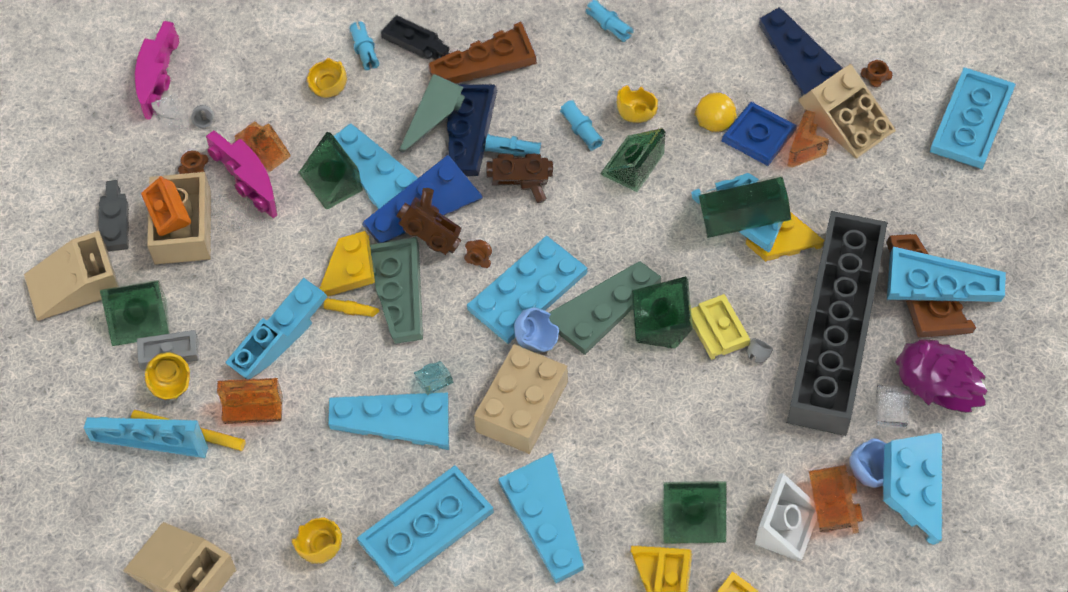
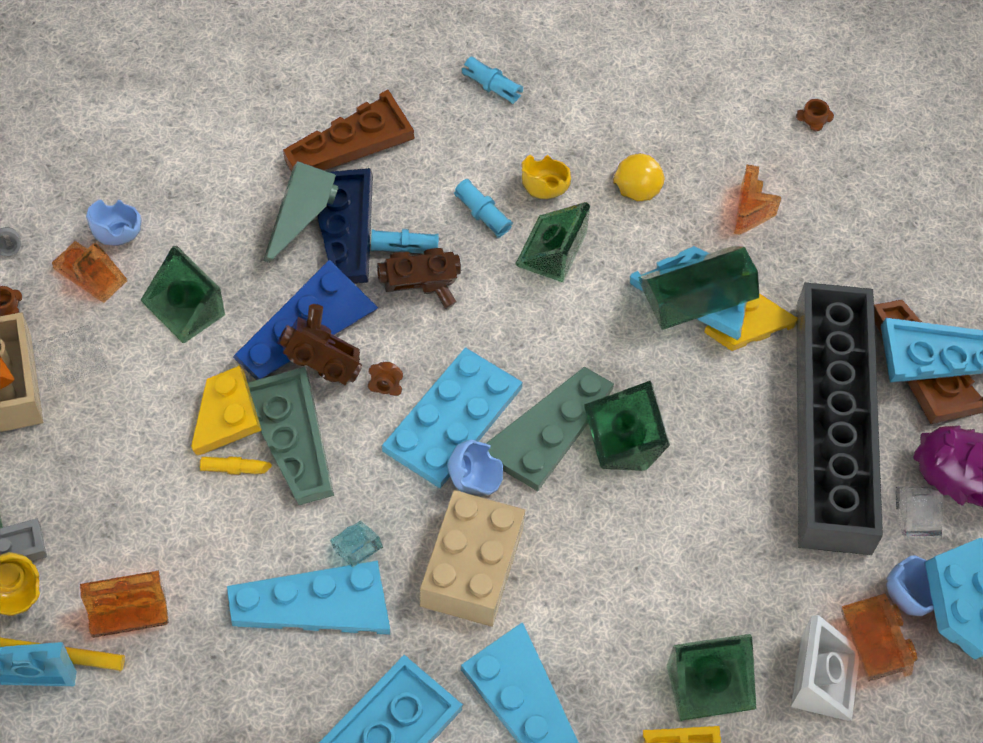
camera: 15 degrees left, 0 degrees up
(247, 170) = (75, 302): dark pink slope -> none
(279, 332) = (147, 509): medium azure slope -> none
(286, 110) = (114, 223): none -> light blue hair
(327, 78) = (159, 179): yellow hair -> none
(364, 45) = (198, 135): medium azure pin -> none
(379, 172) = (246, 292): medium azure wing -> none
(414, 38) = (260, 121): black hinge -> none
(718, 327) = (696, 438): light yellow plate -> none
(759, 133) = (694, 198): blue tile -> none
(759, 349) = (748, 460): light grey hinge -> none
(798, 51) = (728, 104): dark blue wing -> none
(848, 112) = (793, 162): tan slope -> none
(972, 118) = (935, 157): medium azure plate -> none

